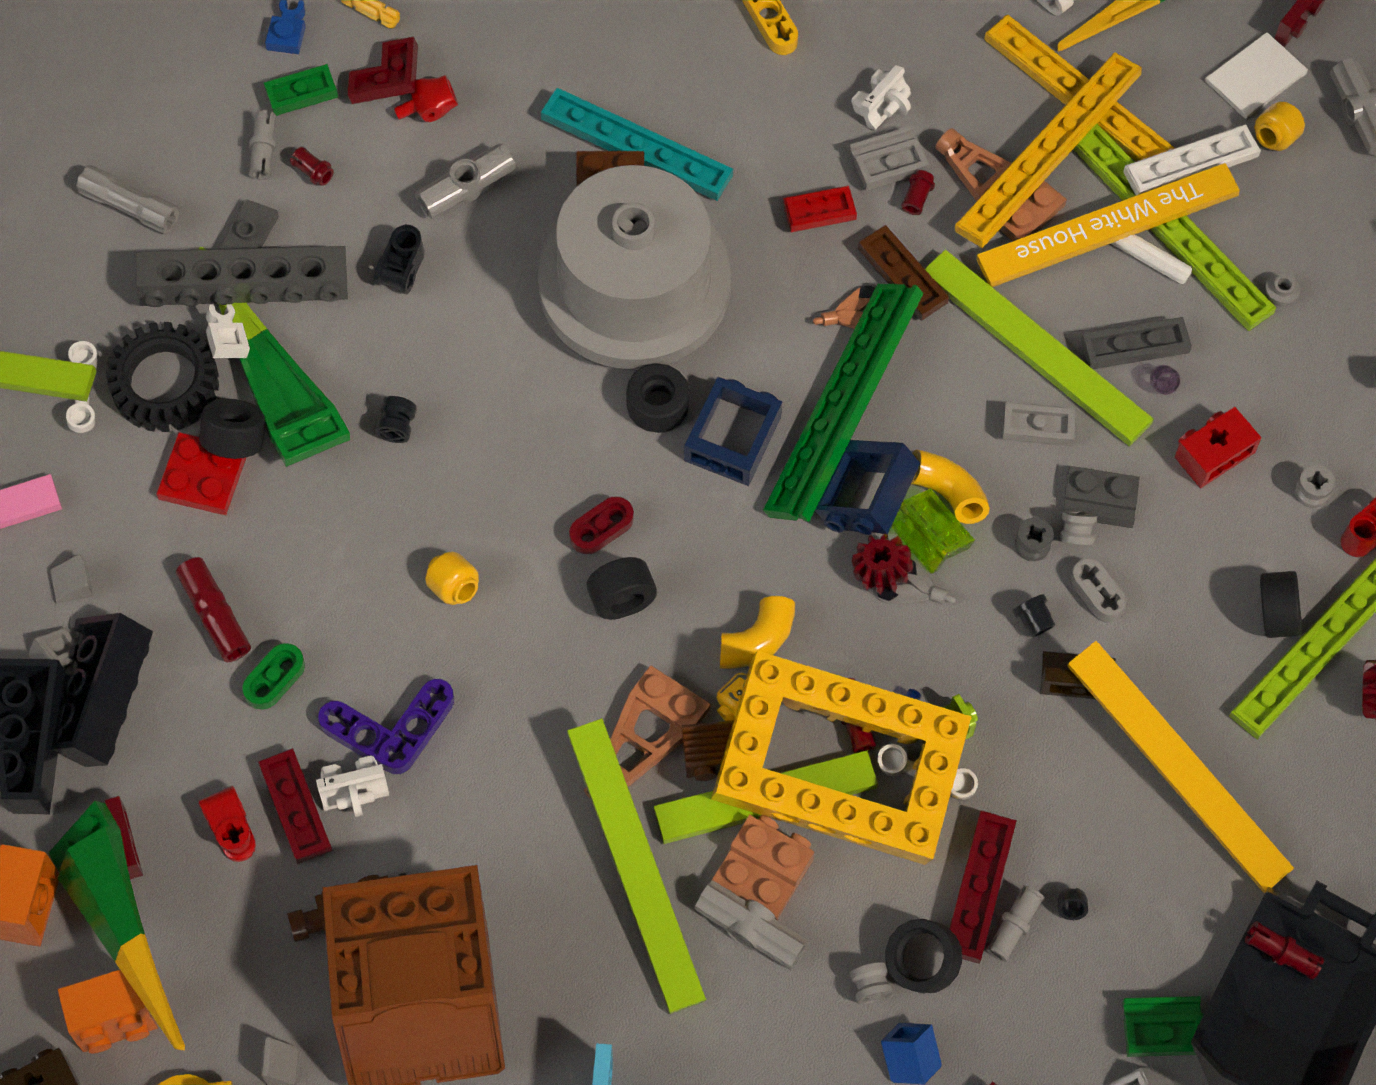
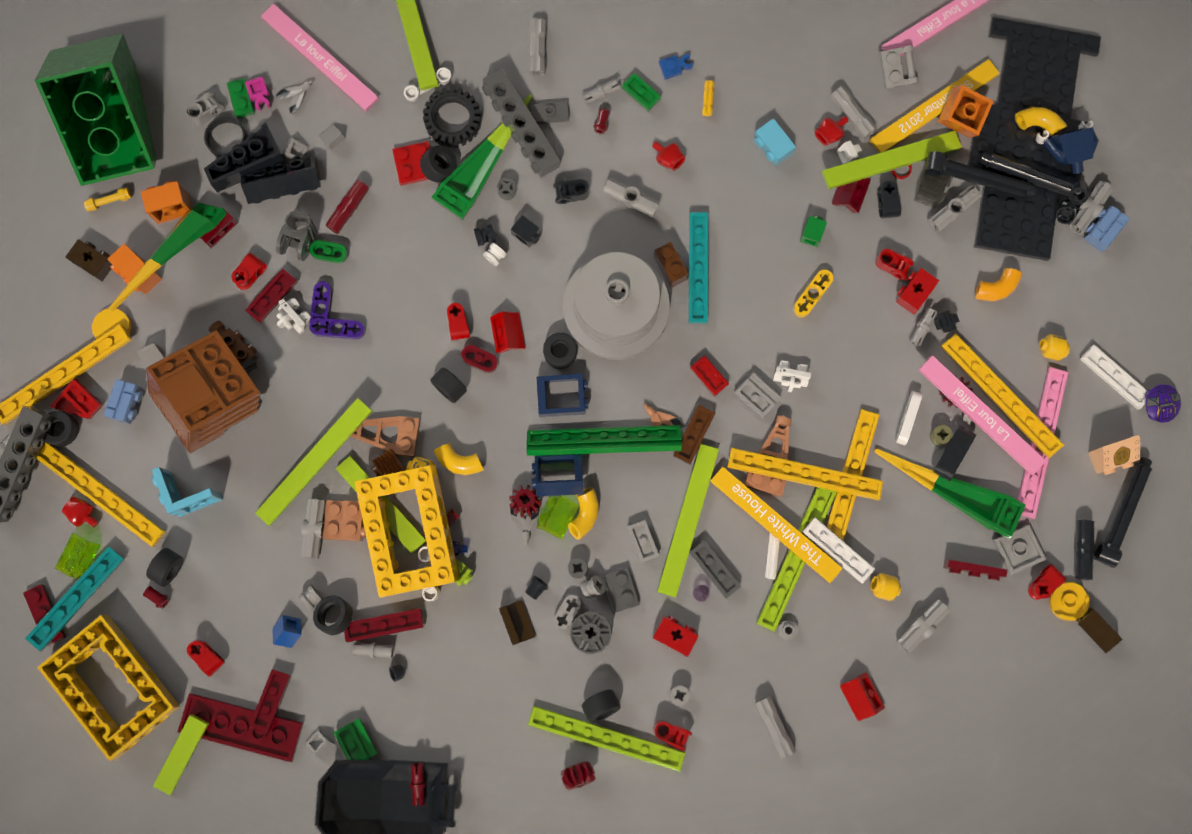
camera: 65 degrees right, 15 degrees up
(208, 676) = (289, 232): none -> dark grey piece
(224, 336) = (484, 134): white plate -> none
(336, 344) = (506, 184): none -> dark grey wheel
(392, 78) = (671, 131): dark red plate -> none
(428, 356) = (526, 231): none -> black brick
(438, 420) = (494, 254): none -> white wheel
(452, 578) = (416, 305): yellow head -> none
(522, 528) = (457, 324): none -> red piece
(578, 465) = (507, 331): none -> red panel
(919, 188) = (745, 419): dark red pin -> none
(1151, 579) = (581, 640): none -> dark grey wheel
(1180, 767) = (487, 693): yellow tile -> none
(1256, 75) = (915, 561): white piece -> none

